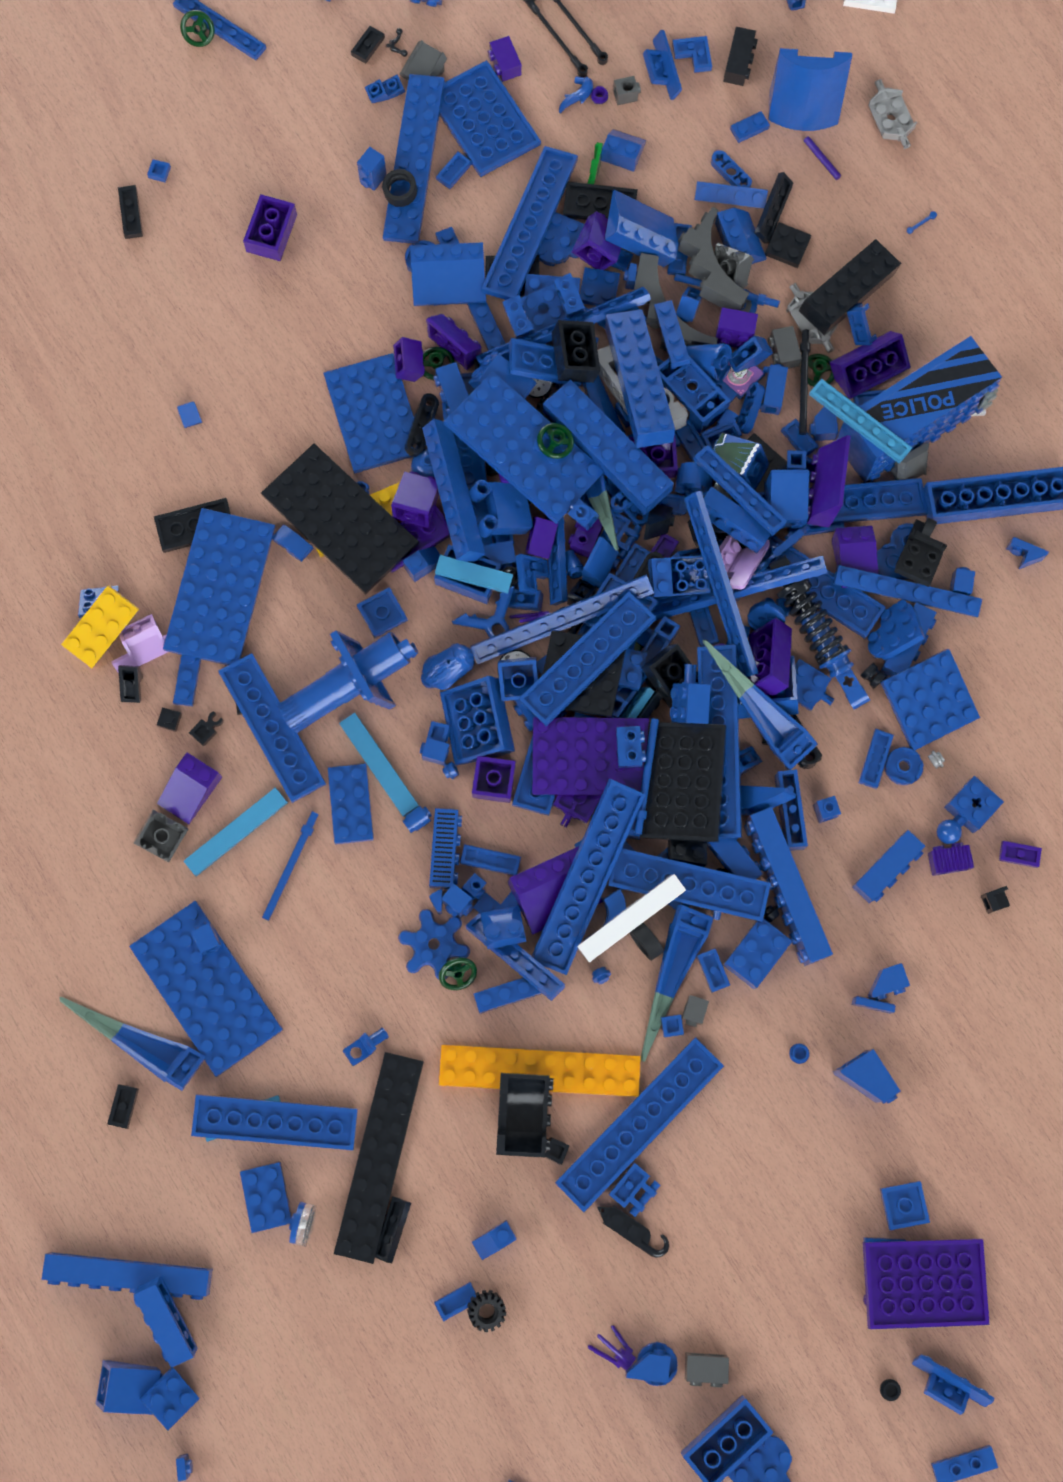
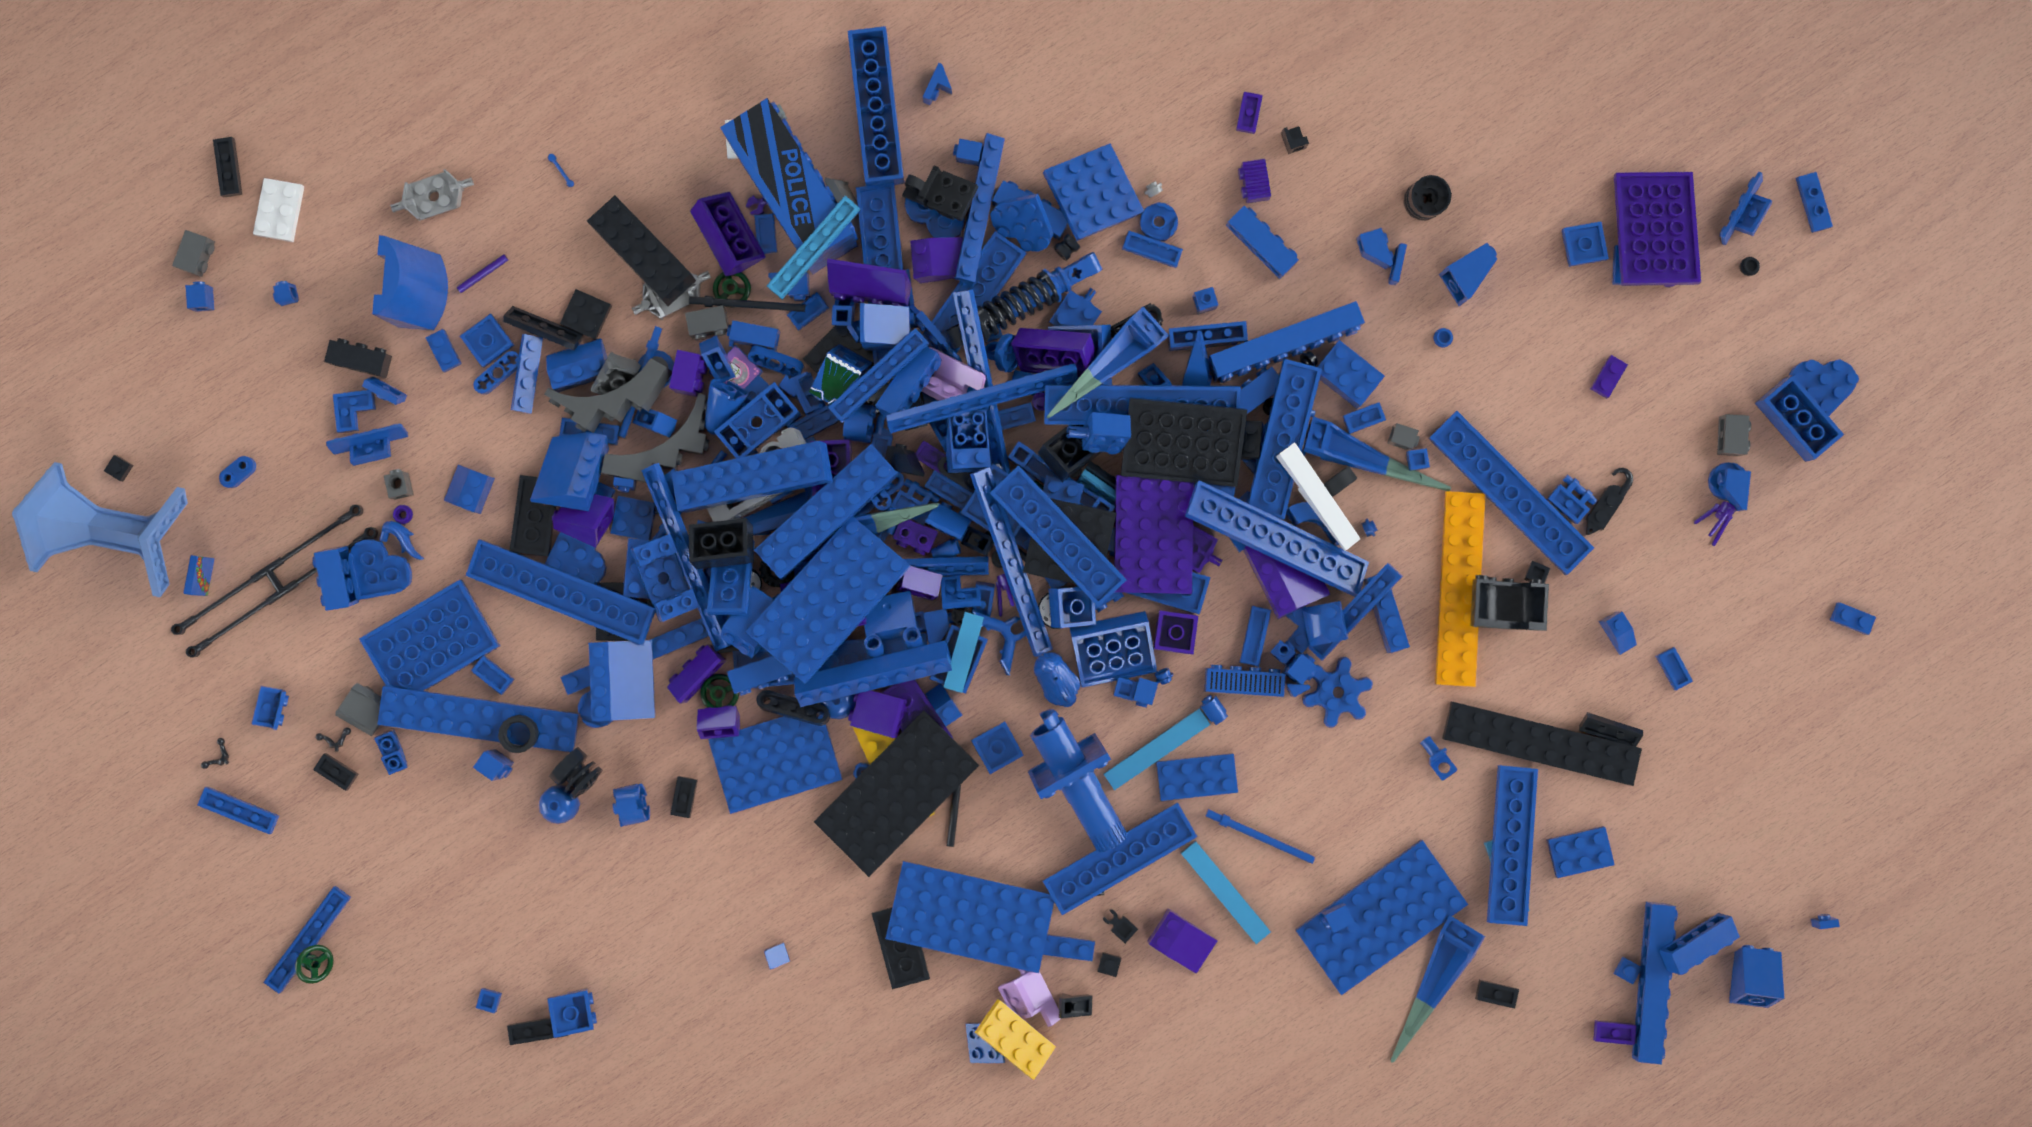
camera: 85 degrees left, 10 degrees up
(77, 1231) = (1614, 1032): none -> dark purple plate
(141, 1247) = (1627, 970): none -> blue plate
(144, 237) = (571, 1013): none -> blue plate
(160, 835) = (1230, 968): dark grey slope -> none
(169, 1398) = (1766, 937): blue plate -> none
(270, 227) = (561, 875): dark purple brick -> none
(292, 543) = (921, 842): blue slope -> none
(302, 1224) = (1609, 815): clear piece -> none
(317, 573) = (953, 817): none -> black bar
(333, 284) = (631, 804): none -> blue brick
(335, 226) = (557, 805): none -> blue cylinder
(339, 332) = (684, 797): none -> black plate
(363, 237) = (575, 773): none -> black wheel
(456, 970) = (1365, 669): dark green piece -> none
(478, 1302) = (1693, 636): black tyre -> none
(505, 59) = (358, 618): dark purple brick -> none
(541, 37) = (334, 578): none -> blue brick
(547, 73) = (377, 572): none -> blue plate
(559, 433) = (823, 559): dark green piece -> none
(583, 514) = (900, 538): blue brick -> none
(595, 164) = (491, 520): green tile -> none
(629, 747) = (1149, 495): blue brick -> none
(642, 814) = (1176, 478): blue bar -> none
(672, 334) = (697, 441): blue plate -> none
(711, 77) = (384, 390): none -> blue plate
(760, 161) = (487, 340): none -> blue plate
(765, 1231) = (1609, 376): none -> dark purple plate
(859, 325) = (686, 242): blue hinge -> none
(955, 1033) = (1437, 194): none -> black wheel
(965, 814) = (1201, 167): blue brick -> none

